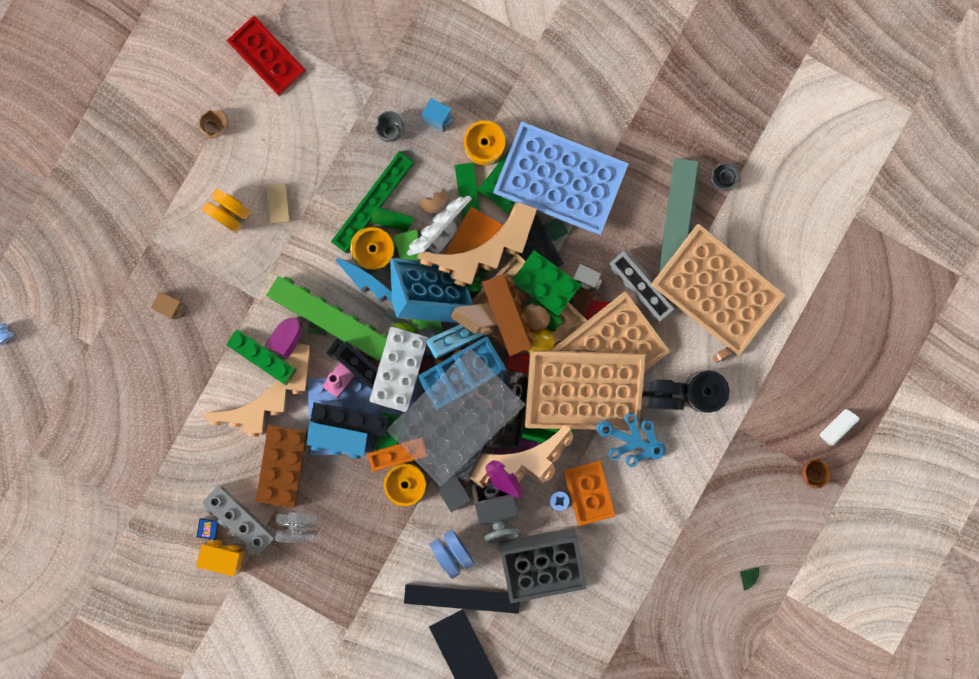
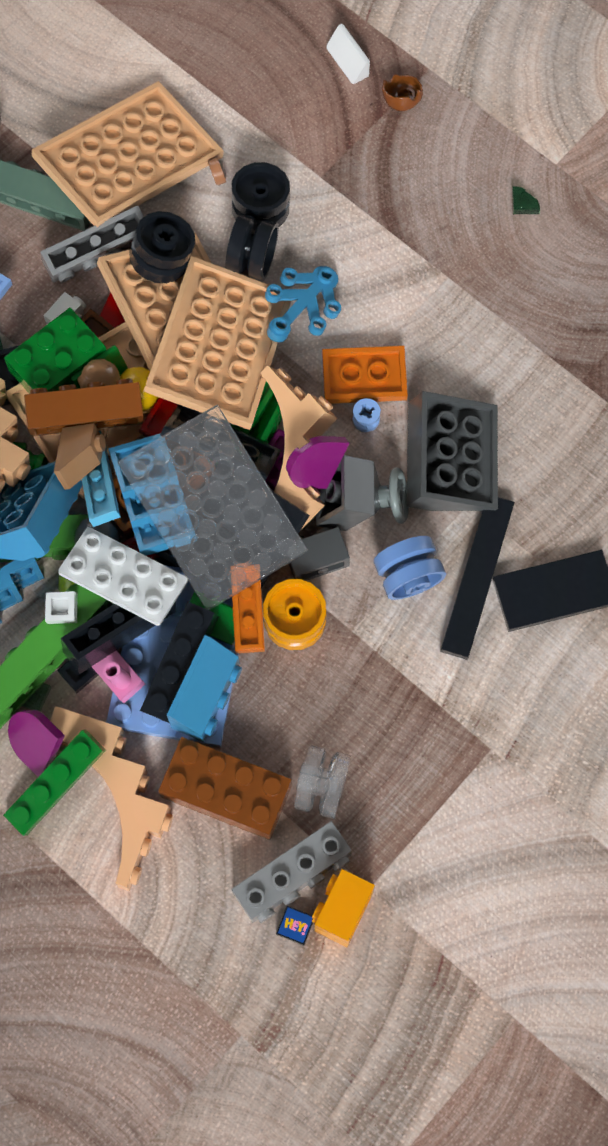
camera: 80 degrees left, 15 degrees down
(368, 334) = (61, 607): none -> white plate
(633, 336) = (162, 247): none -> black wheel

